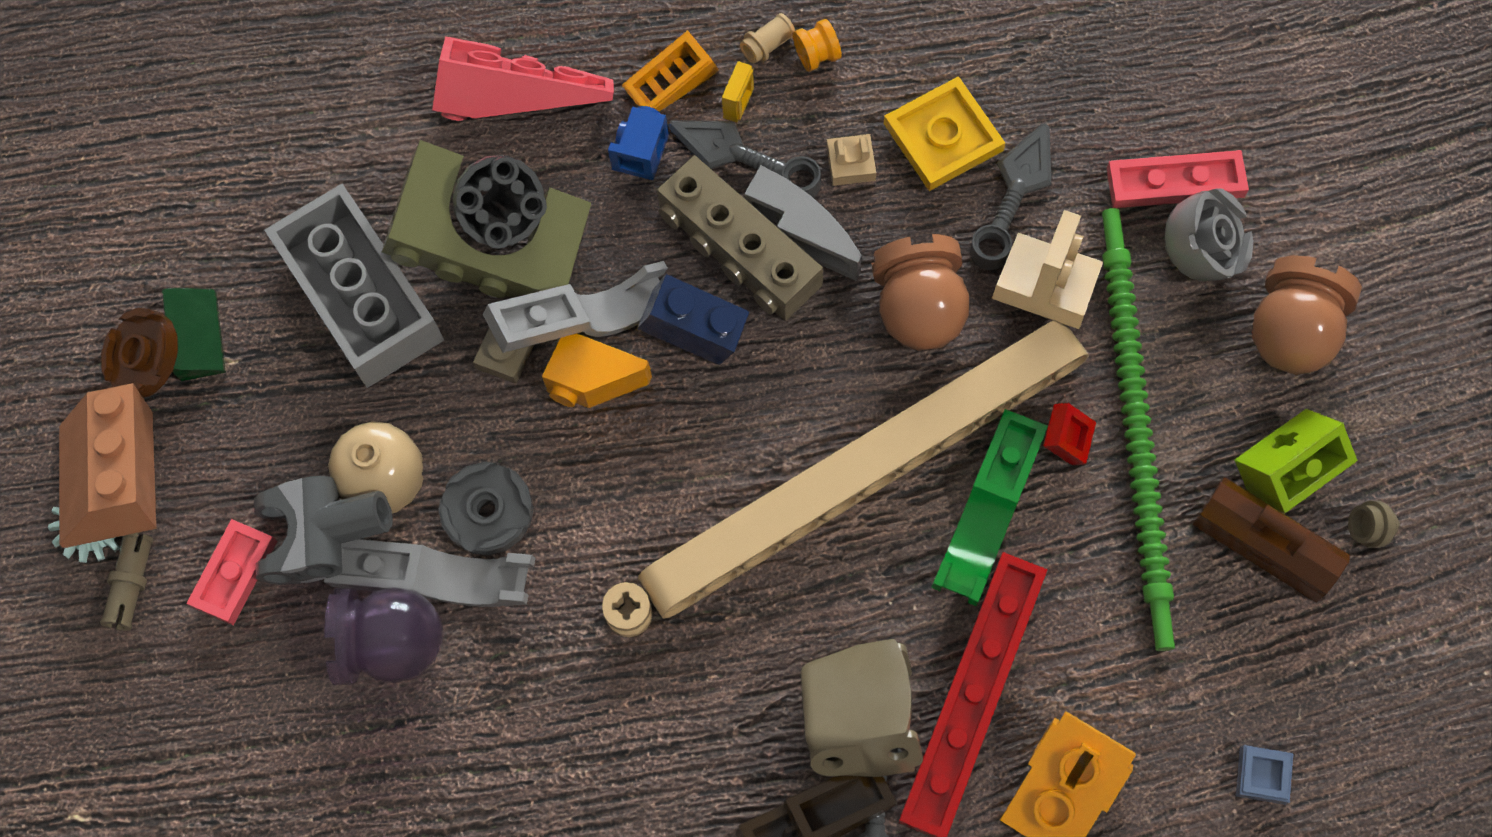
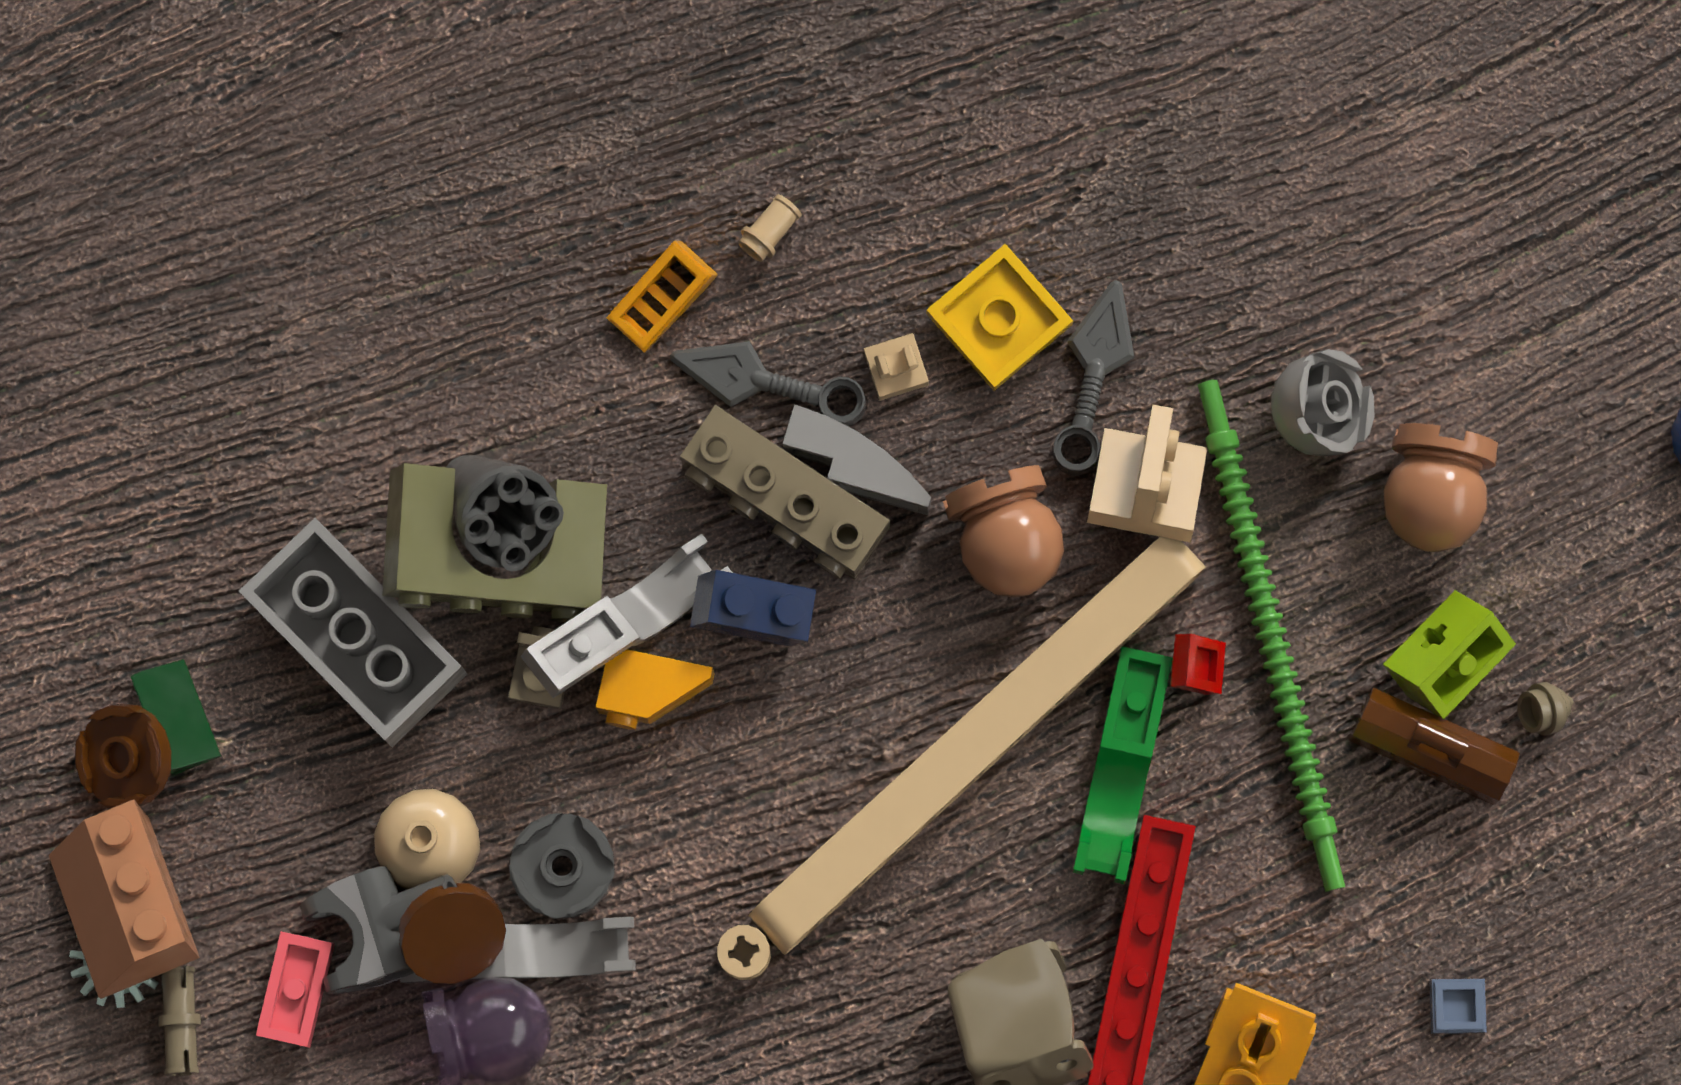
camera: 10 degrees left, 10 degrees up
(370, 539) = (451, 933): none -> reddish brown tile
(483, 84) = (454, 346): coral wedge -> none
(639, 143) = (646, 391): blue brick -> none
(738, 92) = (748, 307): yellow tile -> none
(817, 45) = (830, 229): light orange wheel -> none
(1175, 178) = (1278, 329): coral plate -> none

